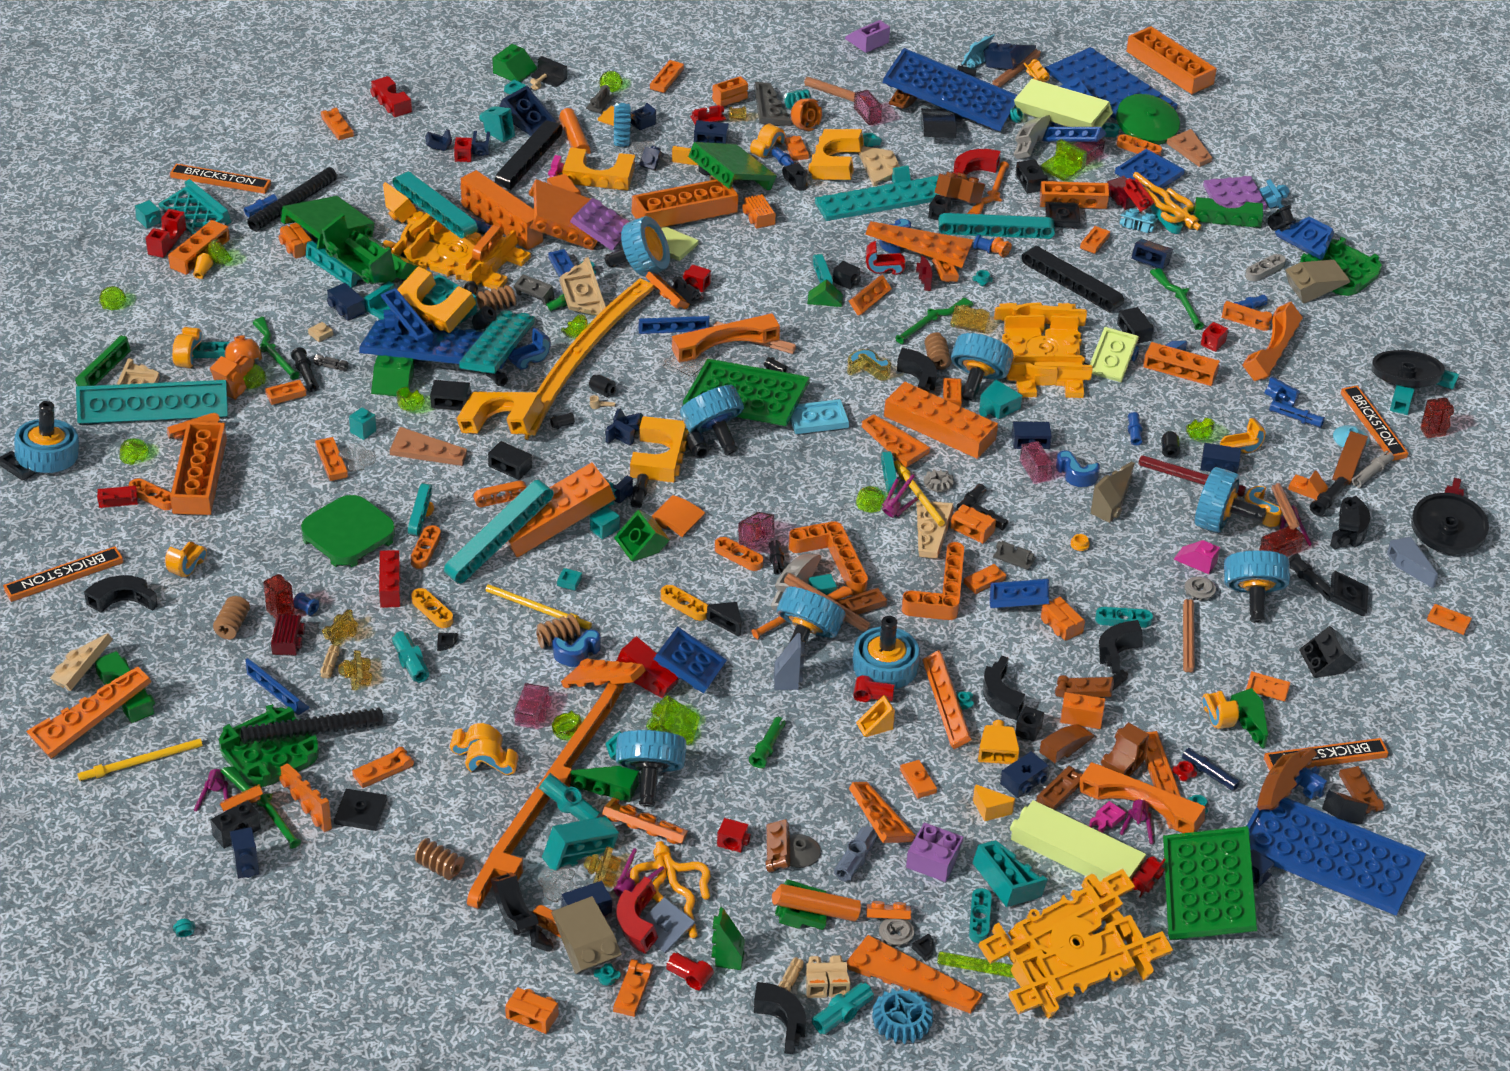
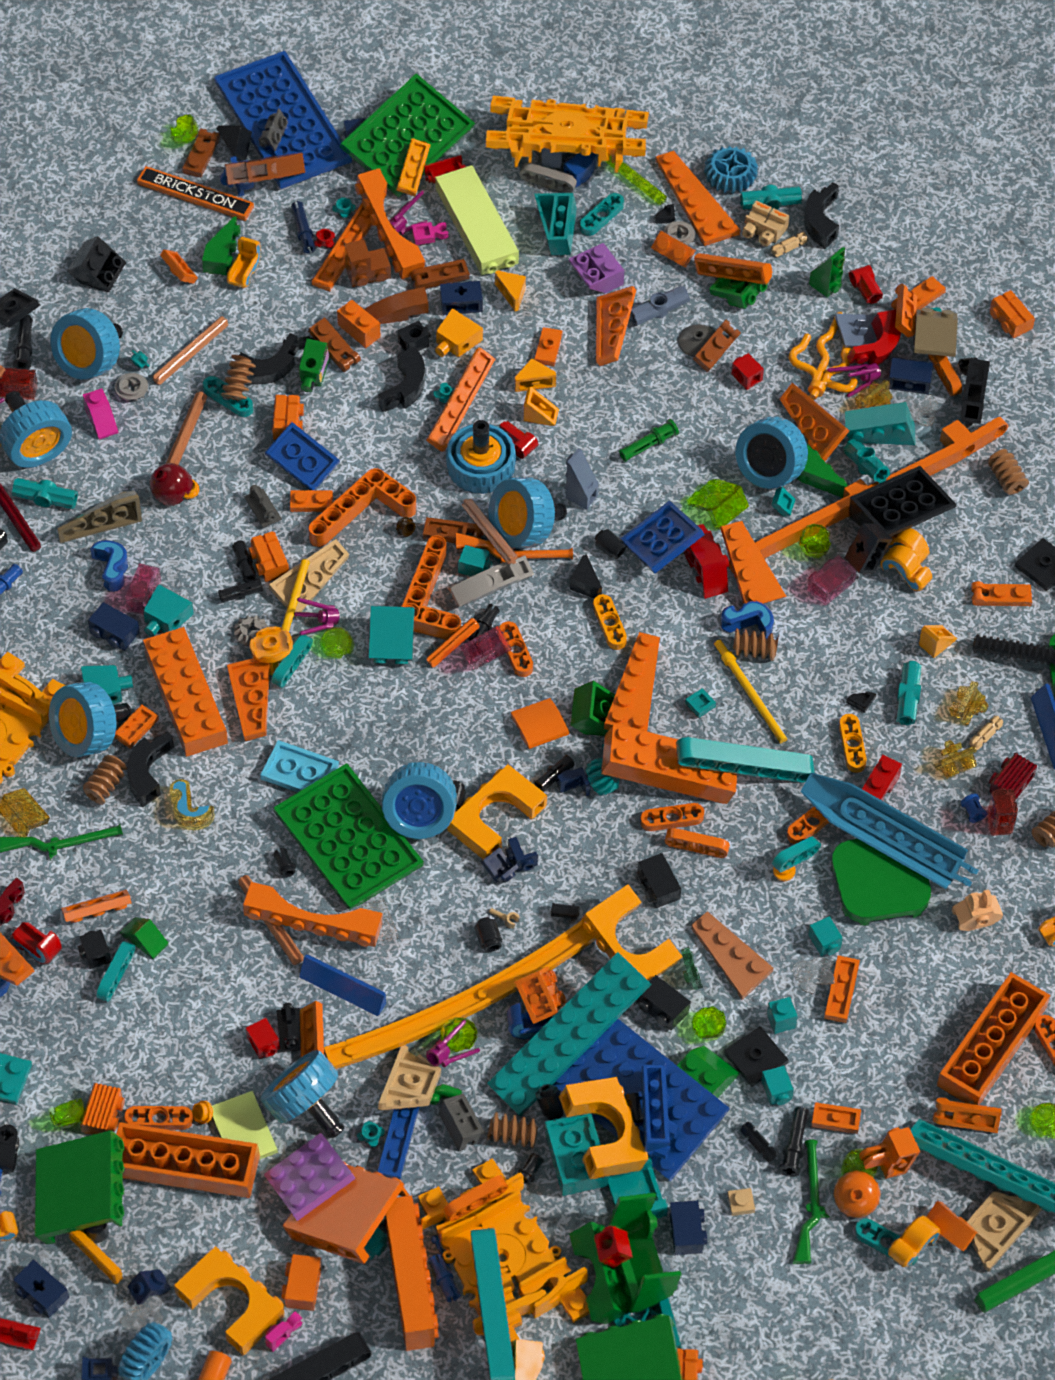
camera: 145 degrees left, 15 degrees up
(164, 367) = (951, 1226): none -> orange slope
(258, 534) = (977, 911): none -> light nougat hinge
(338, 389) = (777, 1086): none -> teal brick
(356, 541) = (888, 830): none -> dark azure hinge
(364, 479) = (825, 936): none -> teal brick
(369, 399) = (754, 1055): none -> black plate
(377, 245) = (613, 1246): none -> red brick
(414, 702) = (935, 639): none -> light orange slope
(444, 422) = (691, 973): none -> clear green plate
(509, 771) = (900, 502): none -> black slope
(514, 718) = (868, 548): none -> black brick
(531, 358) = (541, 994): none -> orange bracket
(575, 308) = (440, 1051): none -> magenta plant
(619, 547) = (634, 693): none -> orange wing
(629, 941) = (906, 310): none -> orange plate
(699, 234) = (202, 1112): none -> light orange plate
(715, 229) = (176, 1112): none -> orange beam
(731, 650) = (610, 543): none -> black brick
(777, 199) = (68, 1114): none -> clear neon green hair
(788, 525) = (452, 642): none -> orange axle
(835, 504) = (391, 634): none -> teal panel
(897, 591) = (405, 526): none -> dark brown plate
(902, 743) = (535, 376): none -> light orange slope
(910, 463) = (271, 644): none -> light orange tile
(1007, 459) = (166, 611): none -> teal torso
(1081, 658) = (313, 364): none -> green torso
(1094, 526) = (170, 483): none -> dark red cylinder
(1121, 608) = (238, 378): none -> medium nougat piece
(1124, 576) = (187, 428): none -> nougat axle
(1173, 490) = (44, 493): none -> teal piece
(1175, 856) = (413, 167): none -> light orange tile
(1216, 601) = (139, 359): none -> teal plate
(1319, 823) = (274, 130): none -> dark grey hinge
(1391, 793) = (185, 130): none -> clear neon green hair

